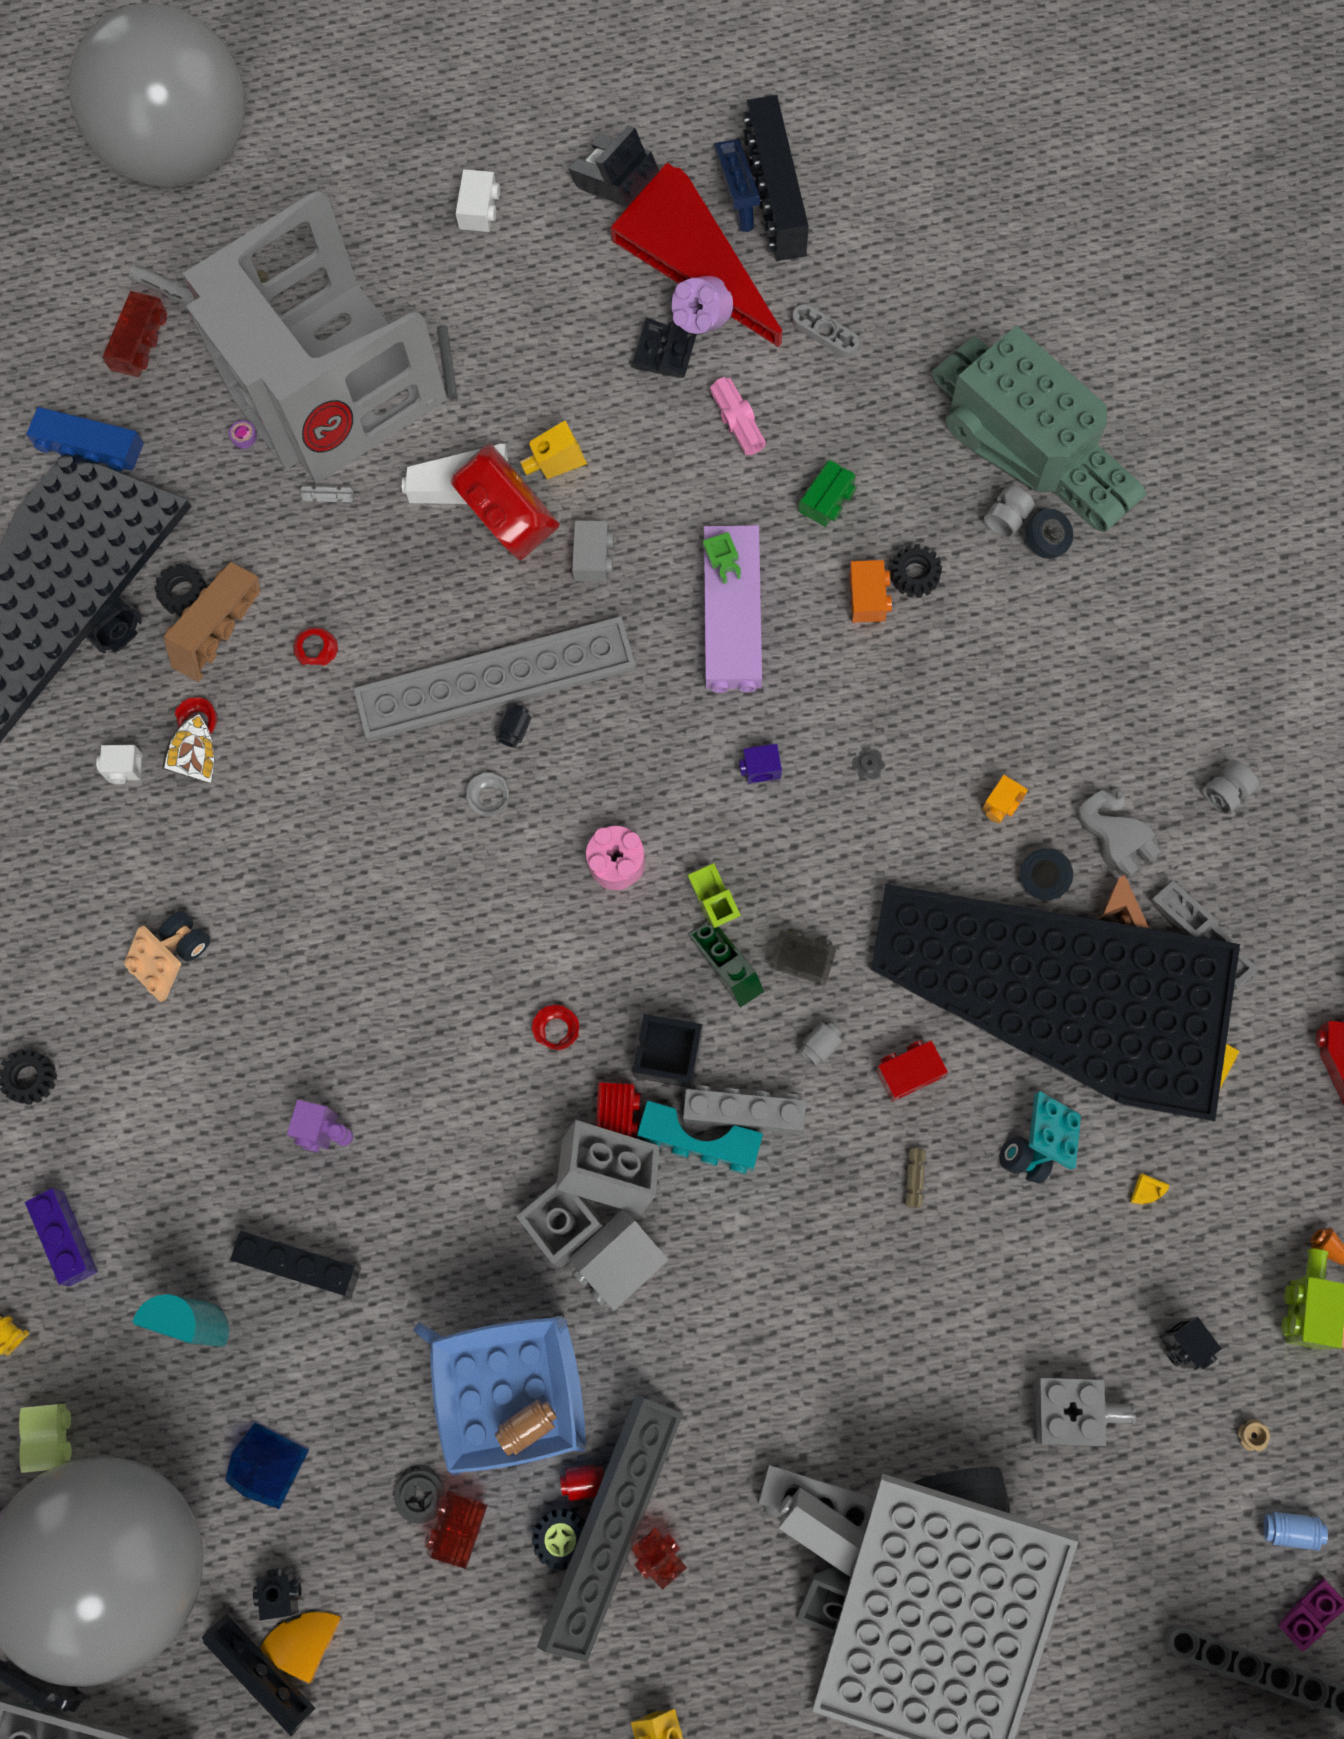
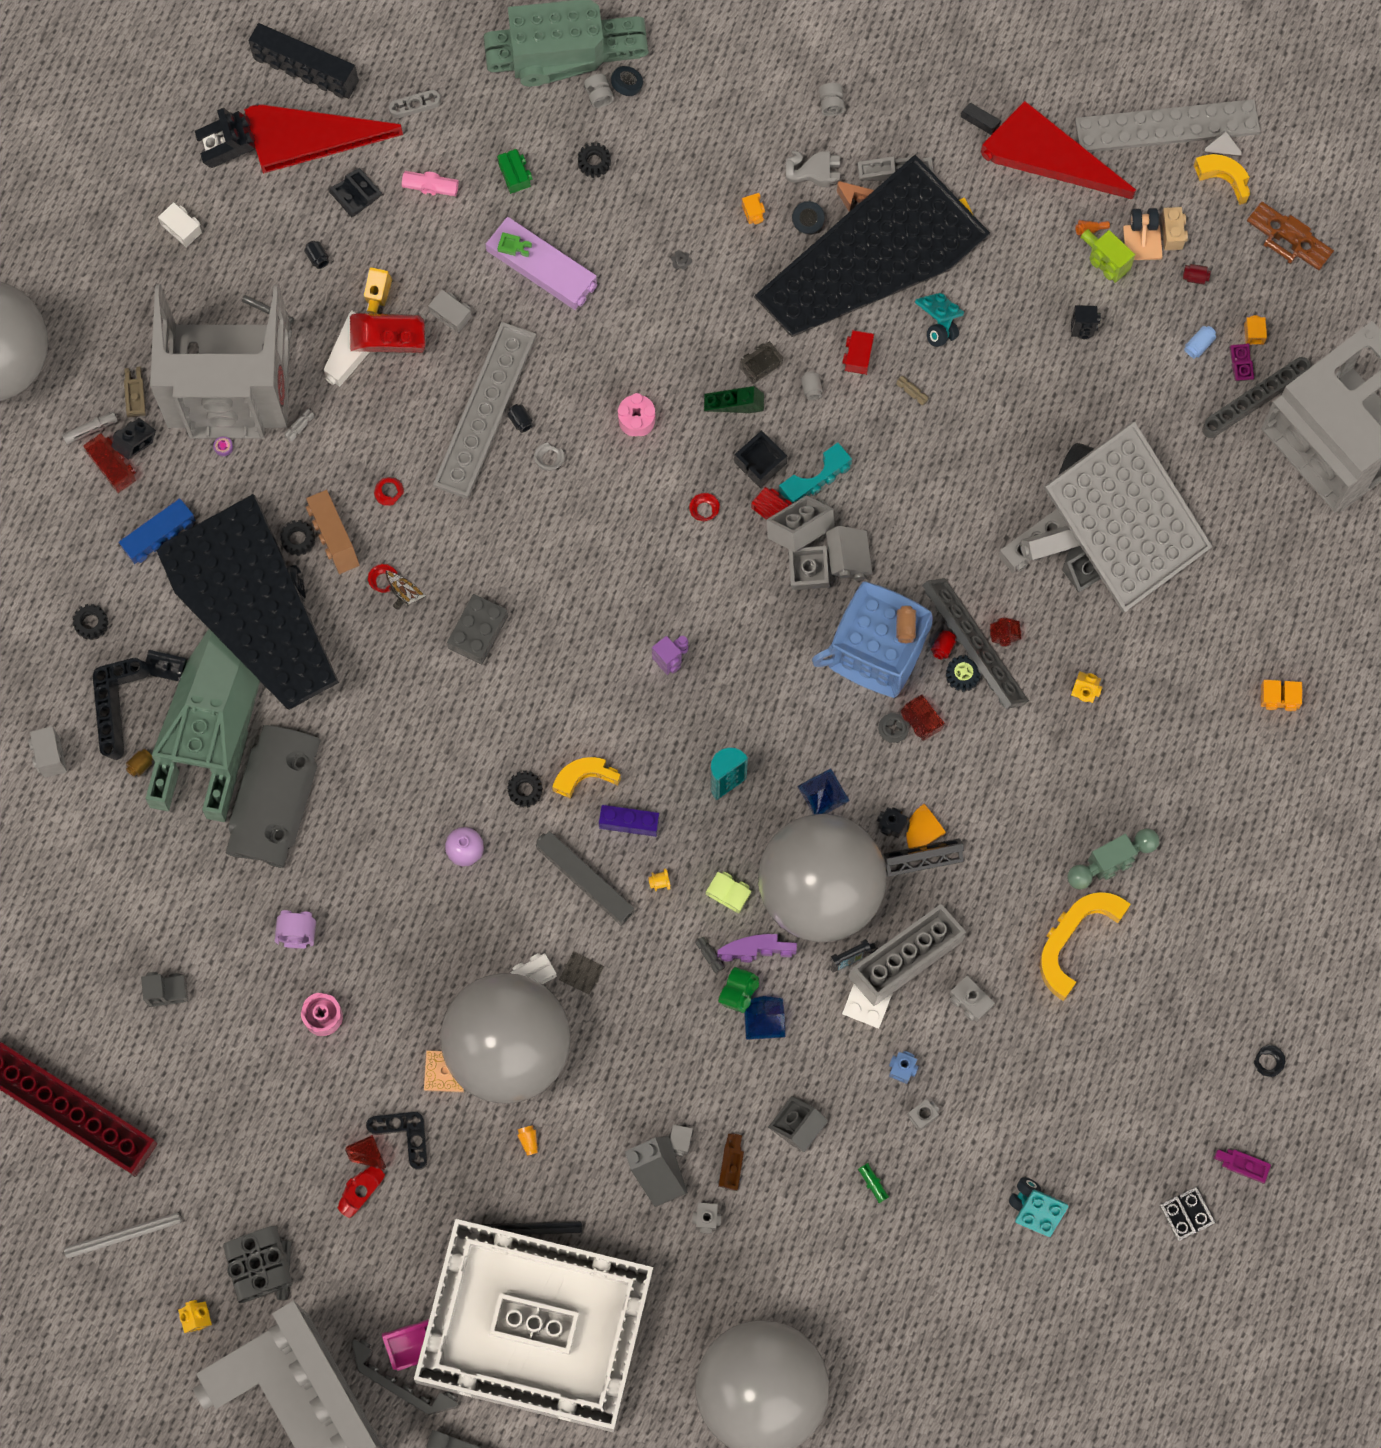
camera: 60 degrees left, 0 degrees up
(75, 1120) = (581, 769): none -> yellow arch
(119, 763) = (379, 633): white brick -> none
(153, 960) = (512, 682): light nougat plate -> none
(174, 334) = (133, 438): none -> black brick
(198, 871) = (477, 629): none -> dark grey brick
(295, 1264) = (741, 704): black arch -> none
(552, 362) = (316, 254): none -> black brick
(688, 302) = (357, 144): lavender brick -> none
(712, 896) = (698, 384): lime brick -> none
(738, 181) = (284, 80): dark blue piece -> none
(751, 1112) = (823, 438): light grey brick -> none
(761, 763) = (641, 310): dark purple brick -> none
(868, 591) = (587, 190): orange brick -> none
(1091, 1416) = (1086, 397): light grey brick -> none
(1148, 1190) = (999, 289): yellow tile -> none
(1261, 1440) = (1146, 323): tan plate -> none

